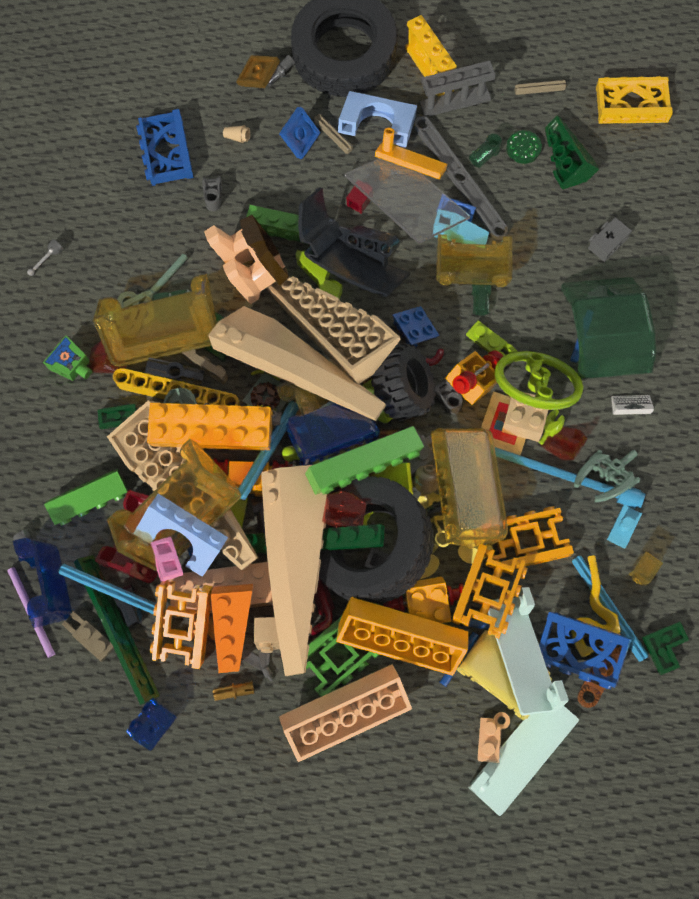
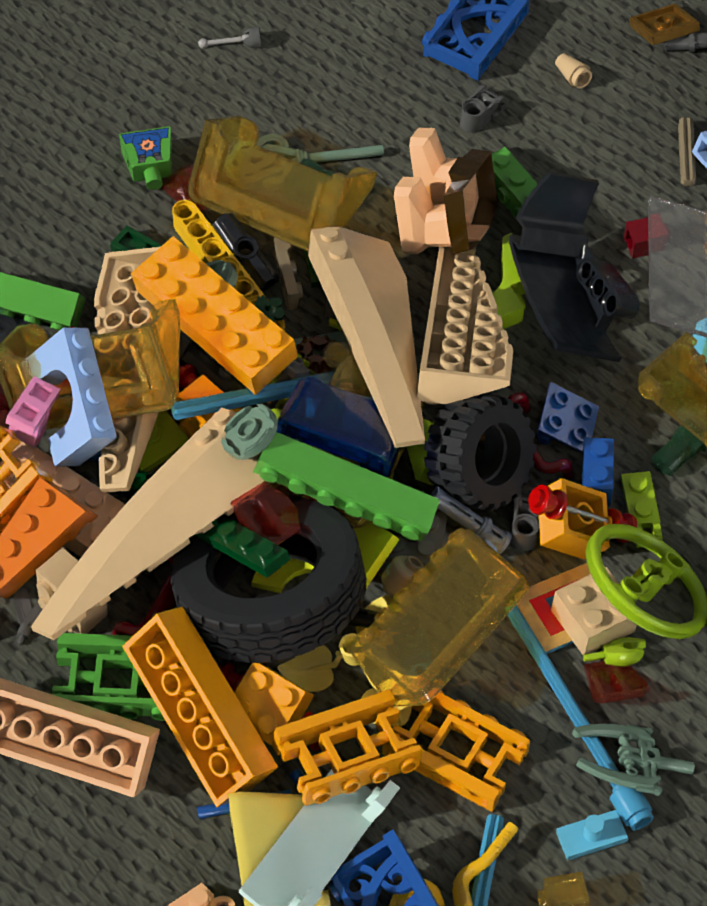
camera: 40 degrees right, 15 degrees down
(220, 395) = (272, 309): none -> dark green plant
(297, 476) = (249, 432): none -> sand green tile
(299, 133) = (643, 118): blue tile -> none
(432, 420) = (470, 520): none -> sand blue pin
(456, 341) = (598, 465): none -> blue brick

